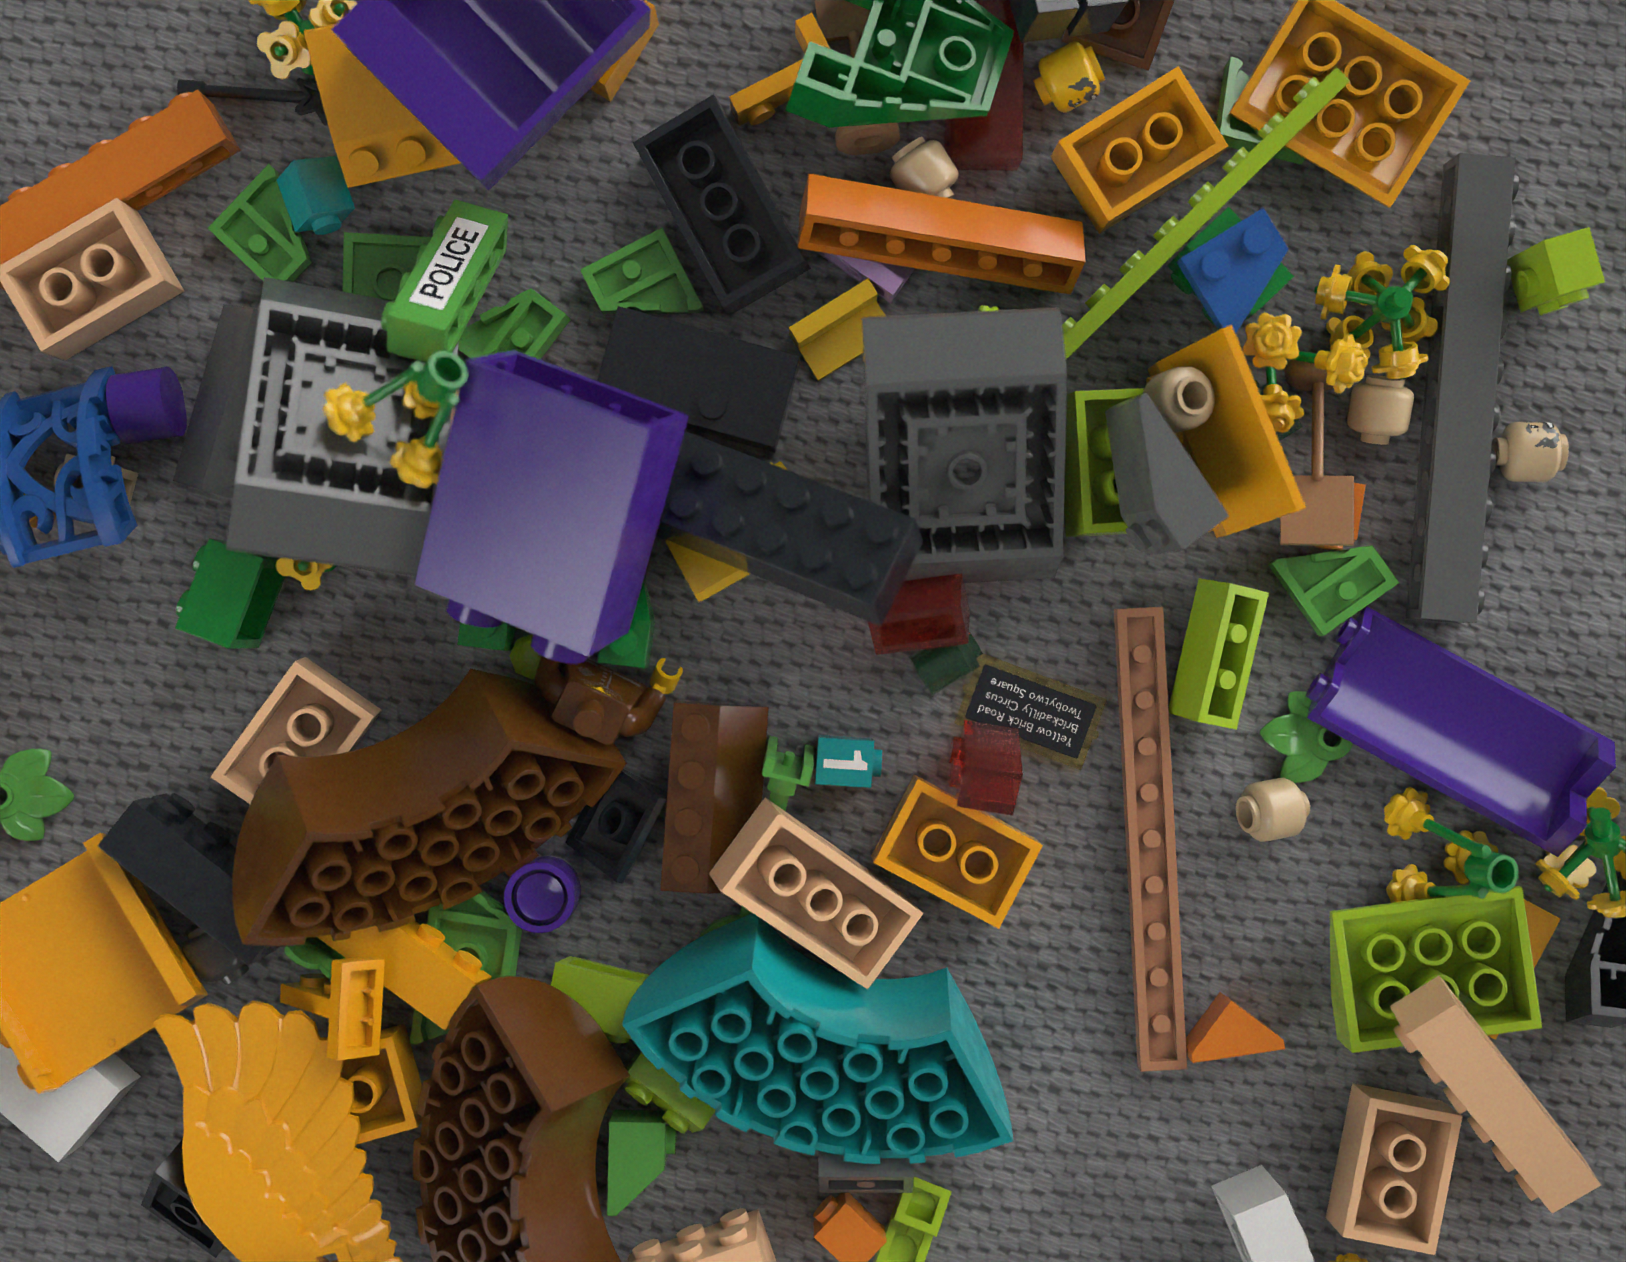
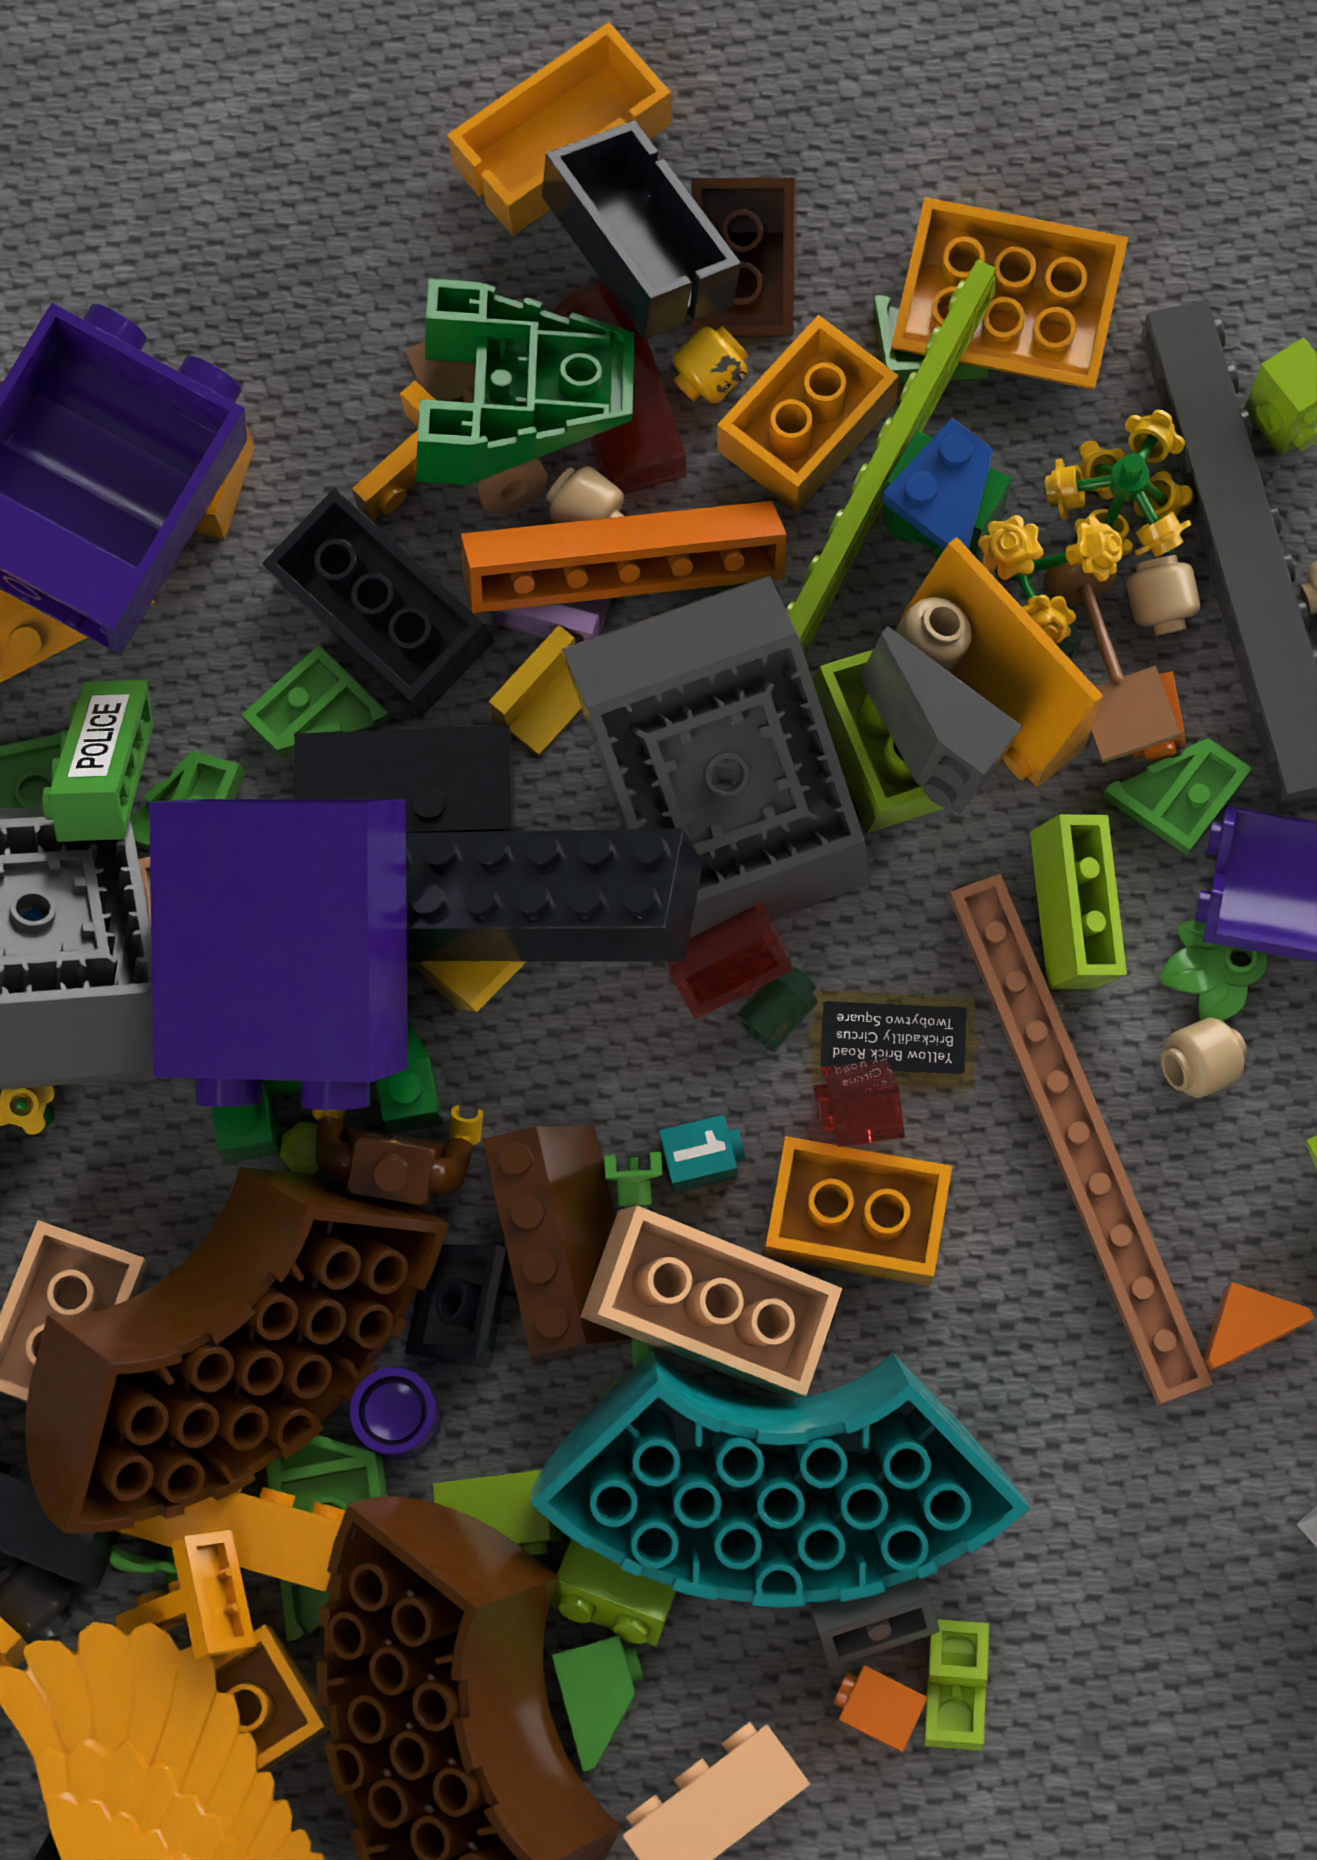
camera: 15 degrees left, 15 degrees down
(428, 389) = (113, 867): plant -> none

